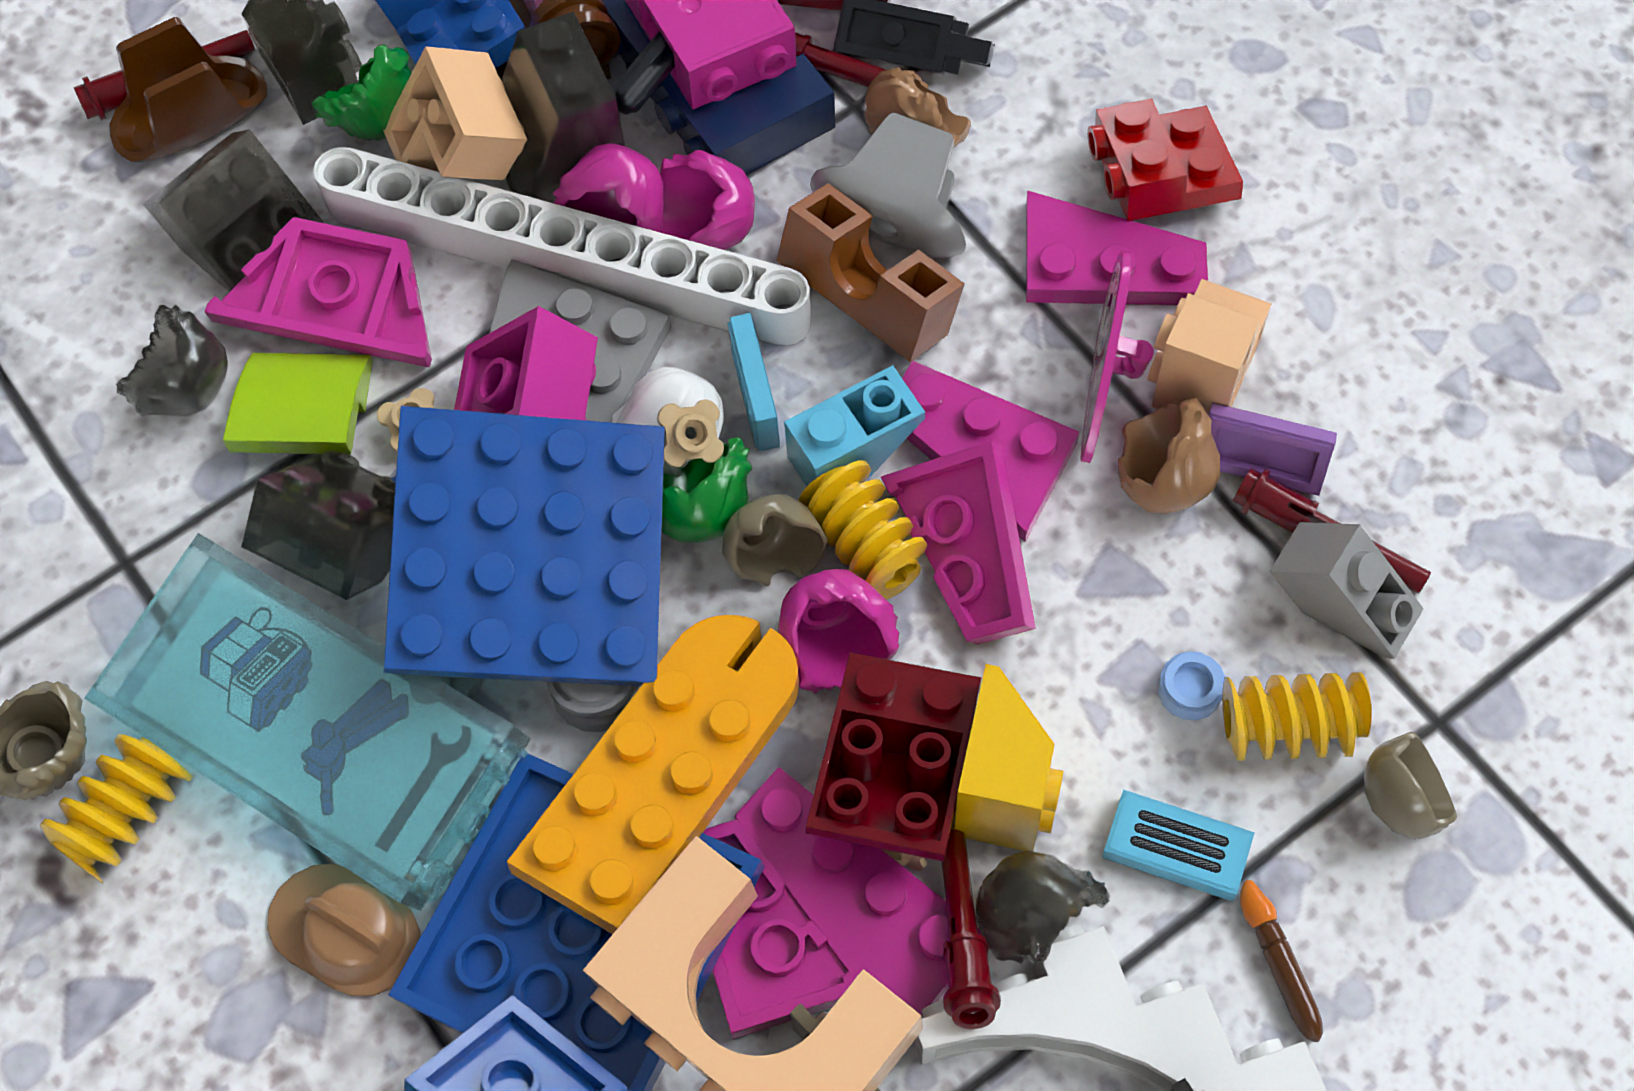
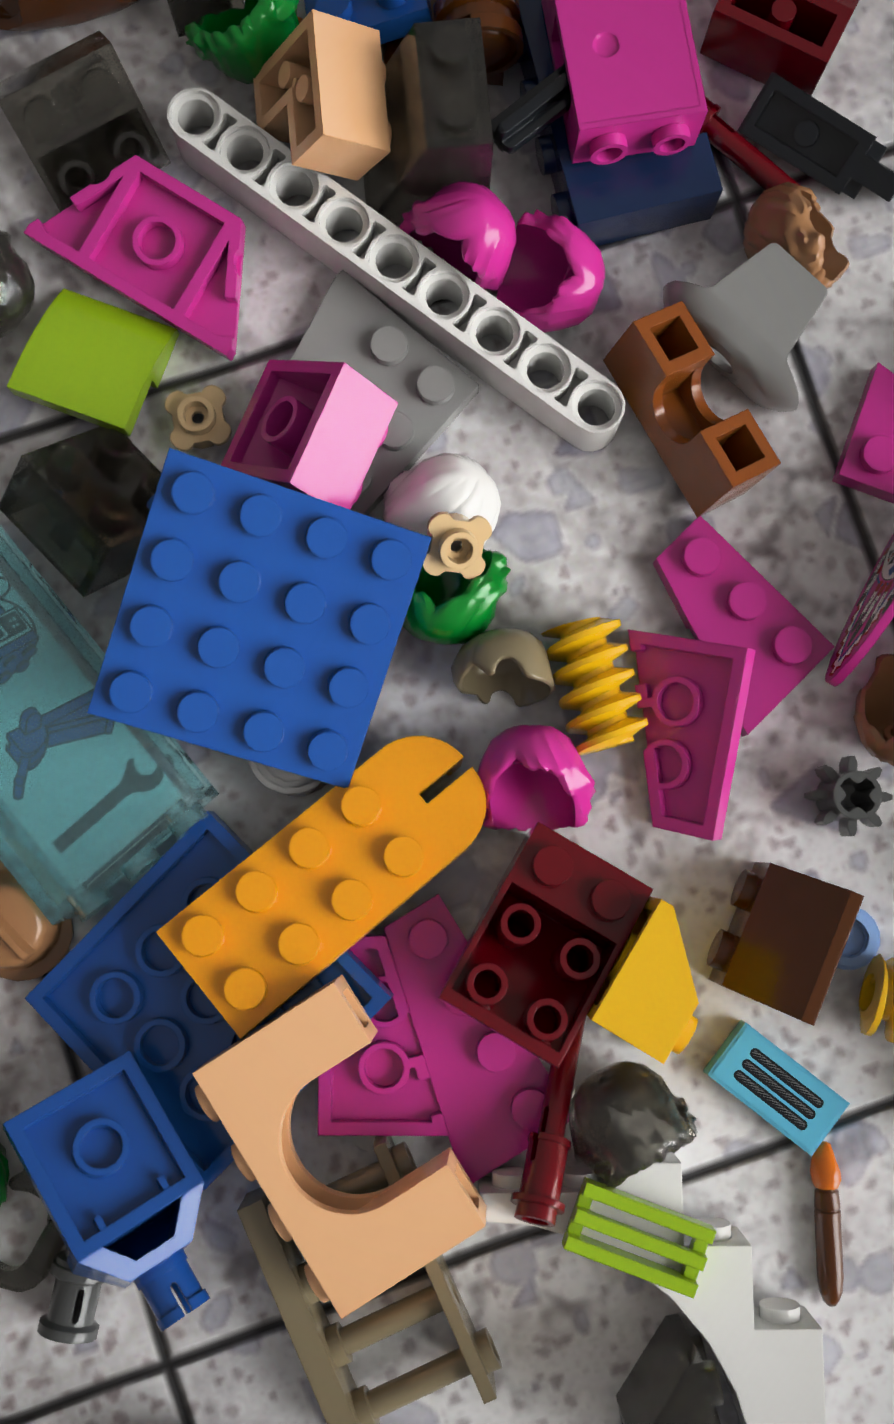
camera: 10 degrees right, 20 degrees up
(753, 382) = (538, 488): medium azure tile -> none
(853, 426) = (619, 578): medium azure slope -> none
(1087, 976) = (691, 1258): none -> lime tile
(1122, 692) = (783, 939): none -> reddish brown slope
(1137, 536) = (866, 796): none -> dark grey gear

